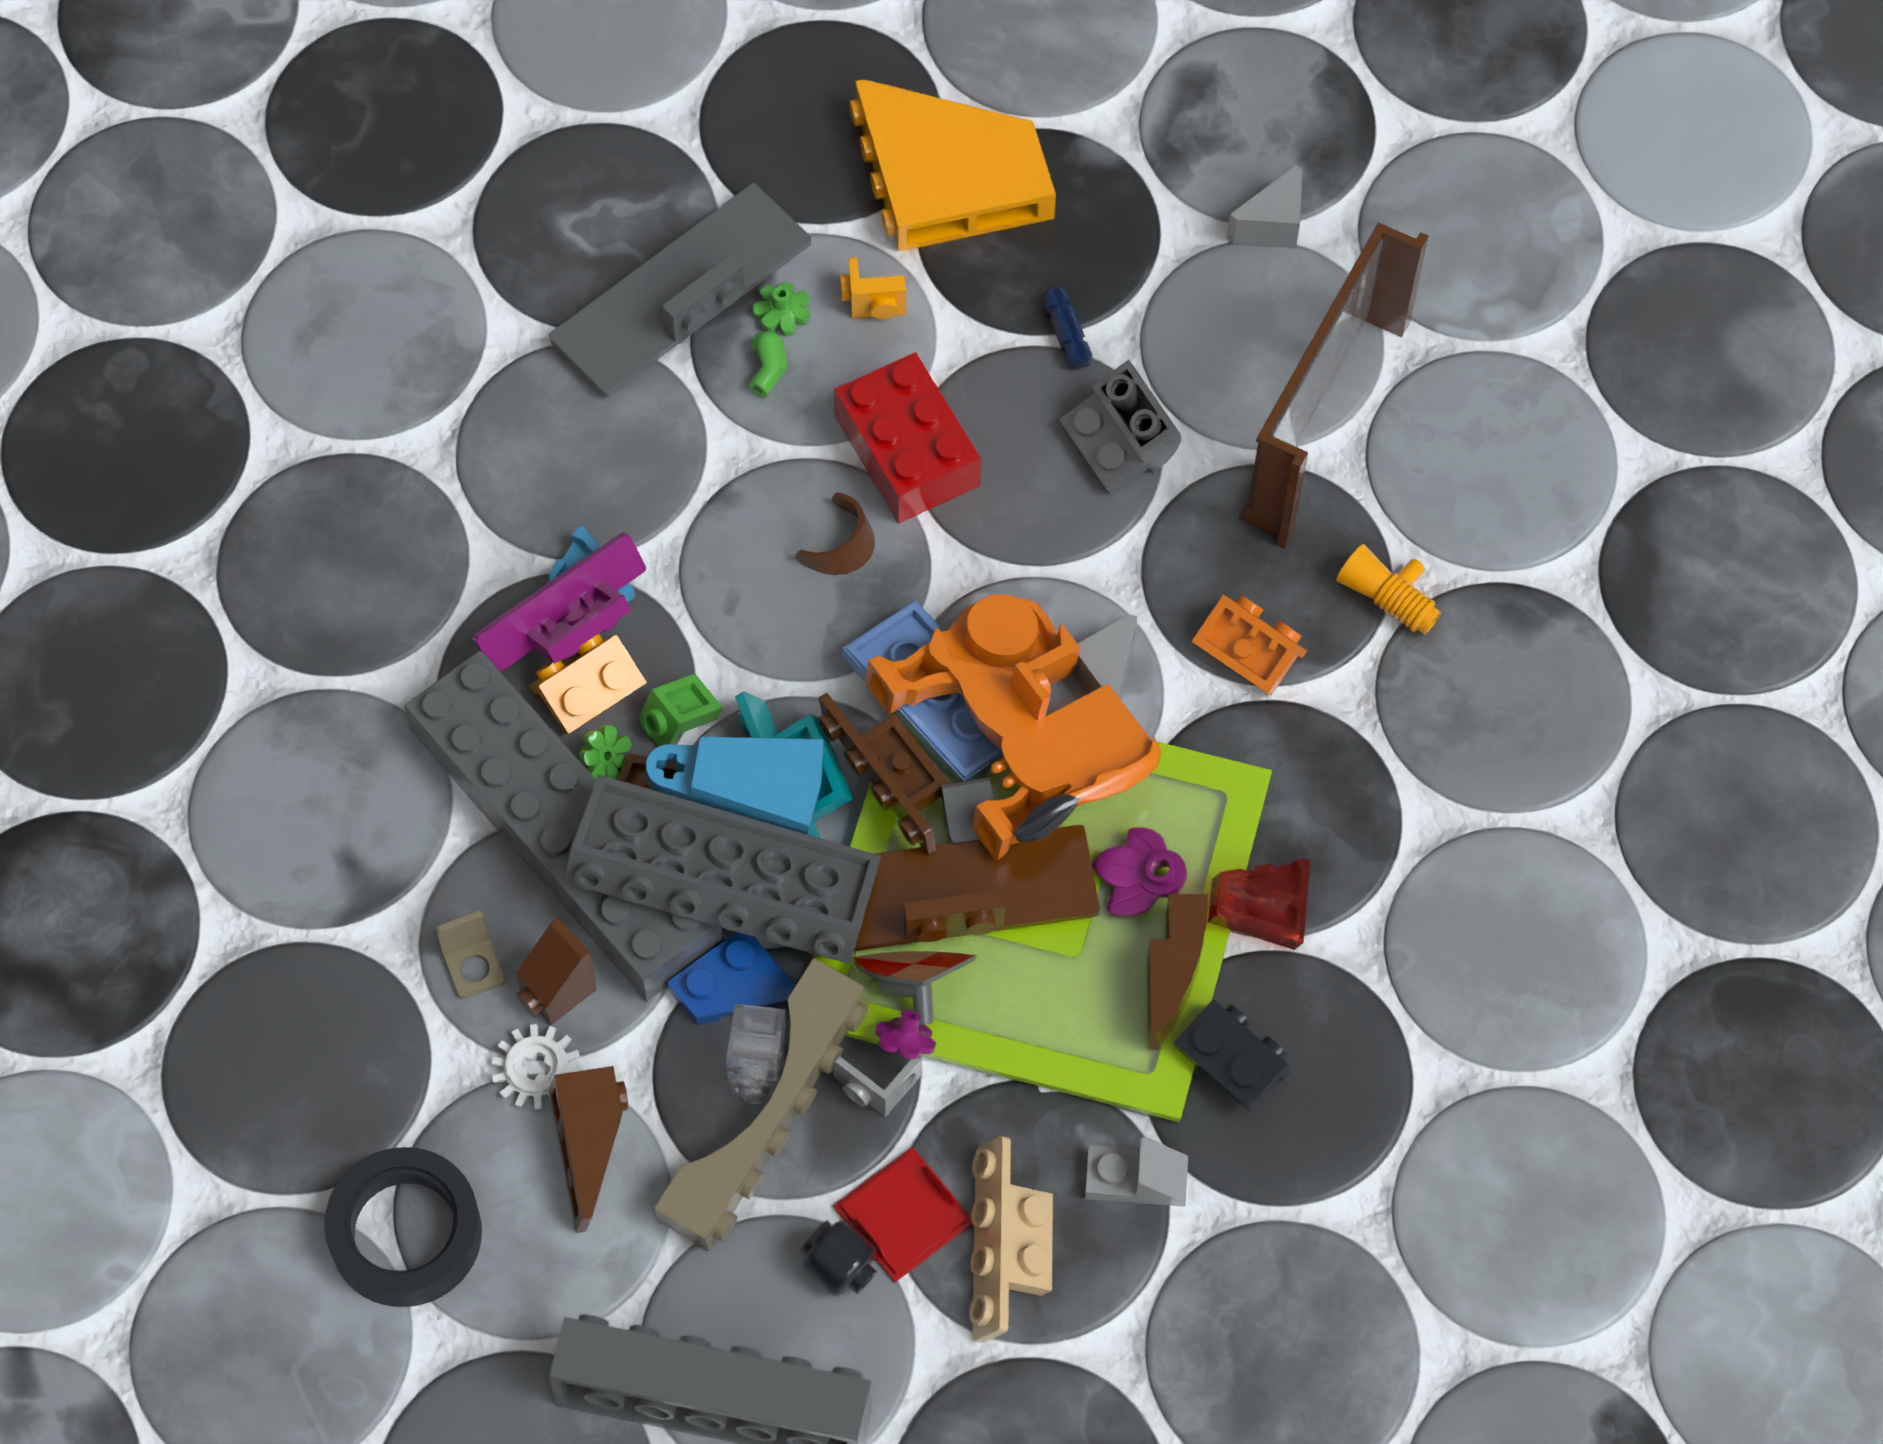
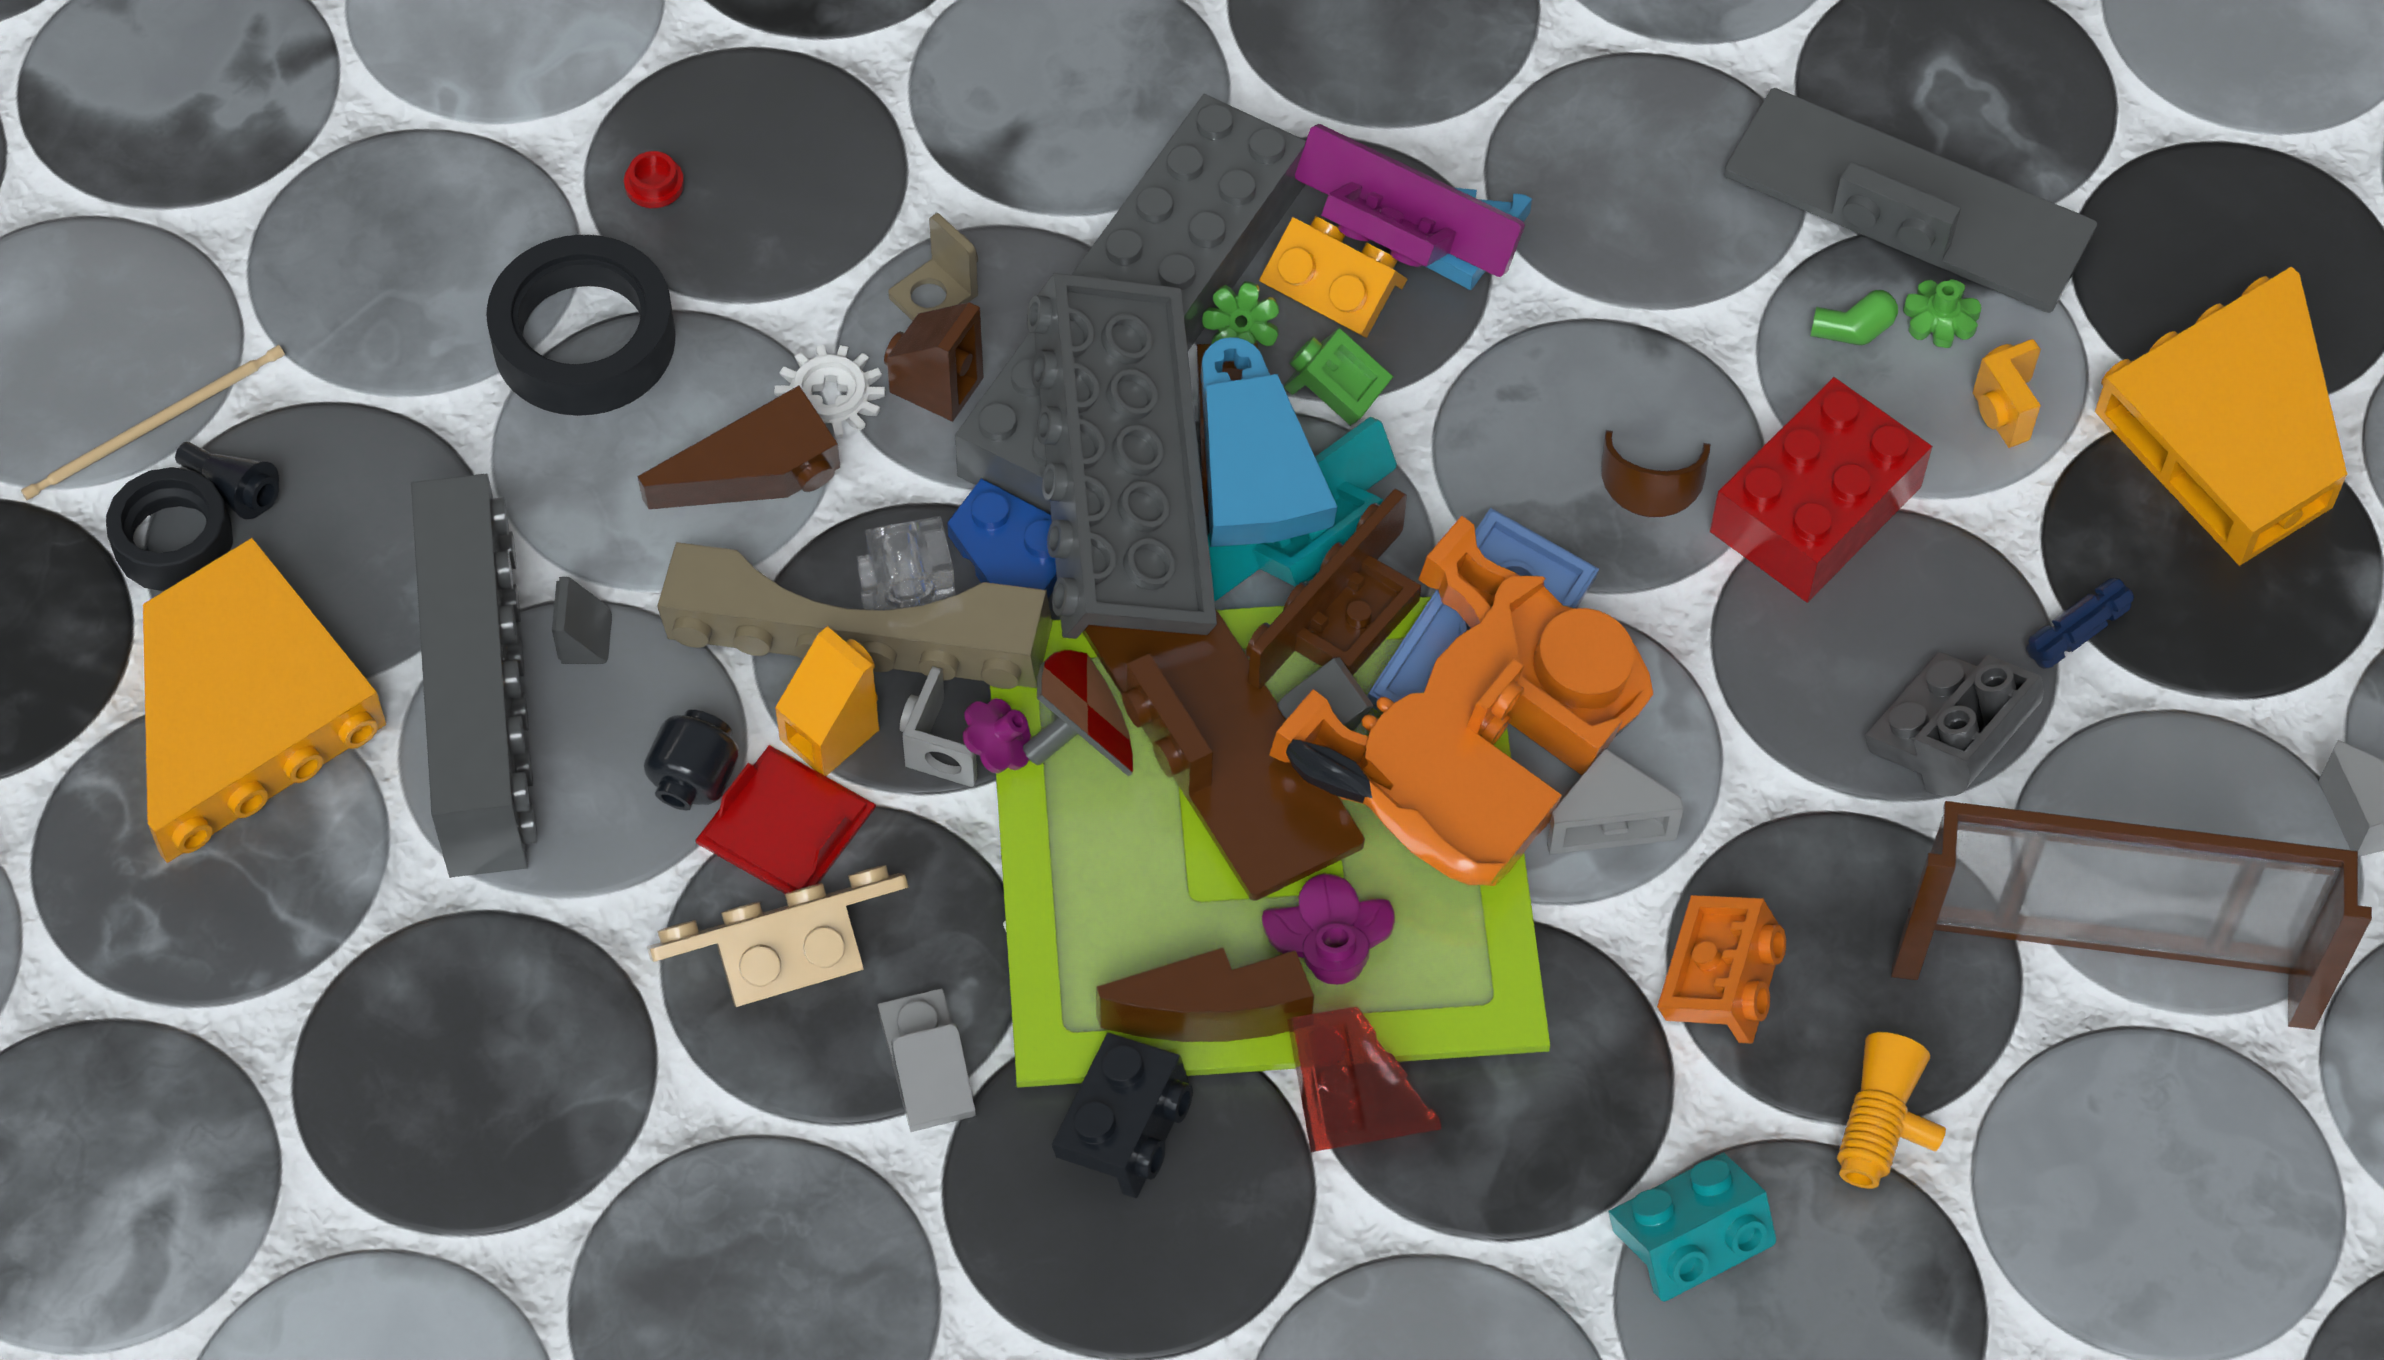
camera: 70 degrees right, 5 degrees down
(282, 1135) = (653, 180): none -> red plate
(681, 1309) = (580, 625): none -> dark grey slope
(836, 1143) = (829, 703): none -> light orange slope
(1431, 731) = (1696, 1225): none -> teal bracket

